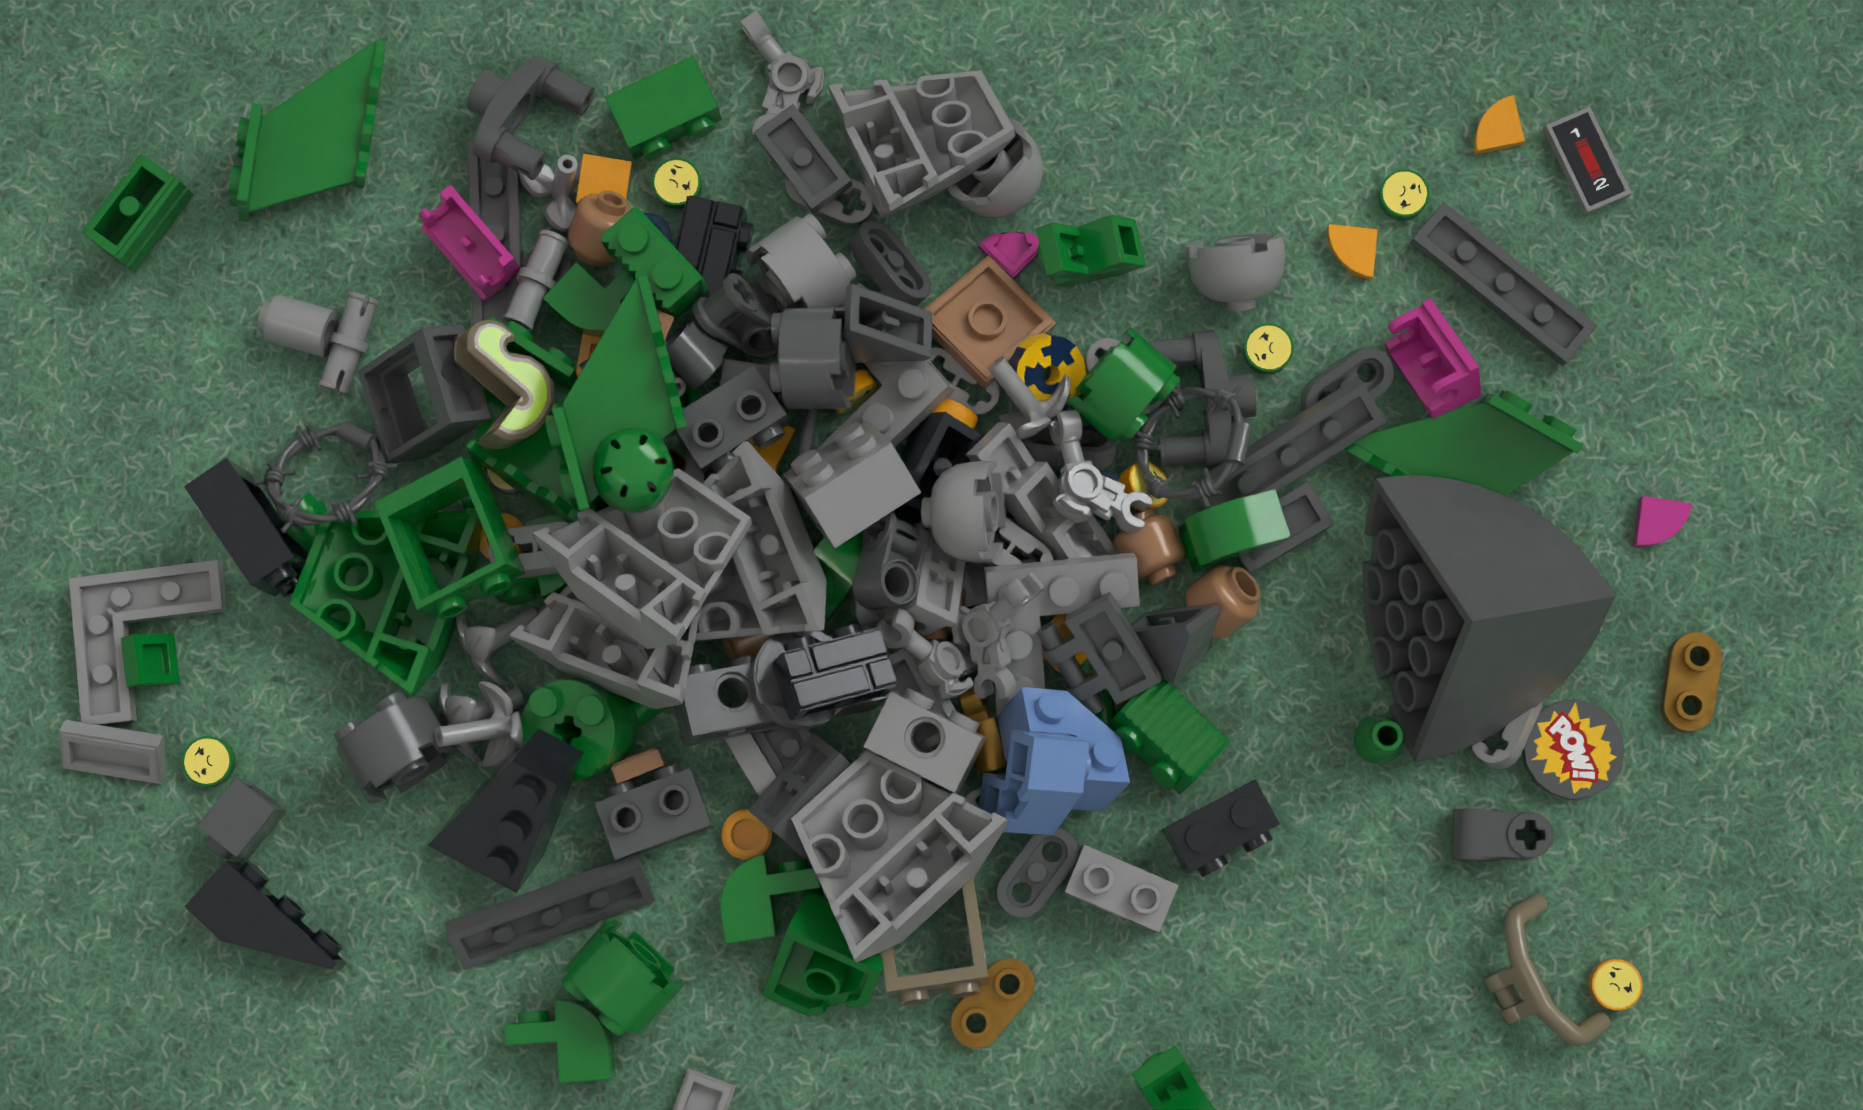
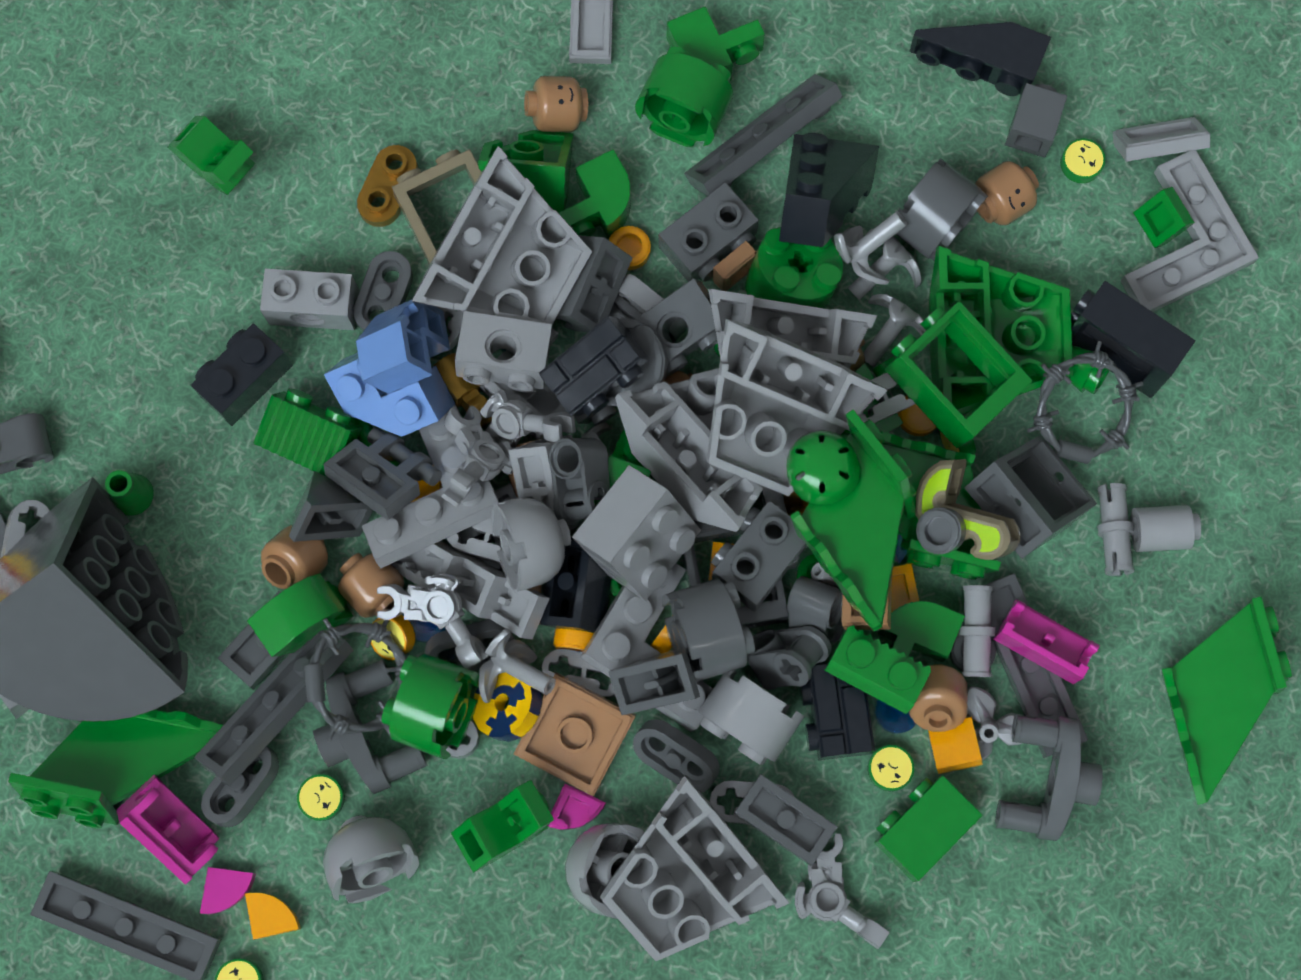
camera: 160 degrees right, 5 degrees down
(307, 746) = (1009, 192): none -> medium nougat head
(535, 368) = (941, 530): none -> dark grey tile
(769, 1030) = (556, 104): none -> medium nougat head
(1392, 290) = (224, 889): none -> dark pink tile

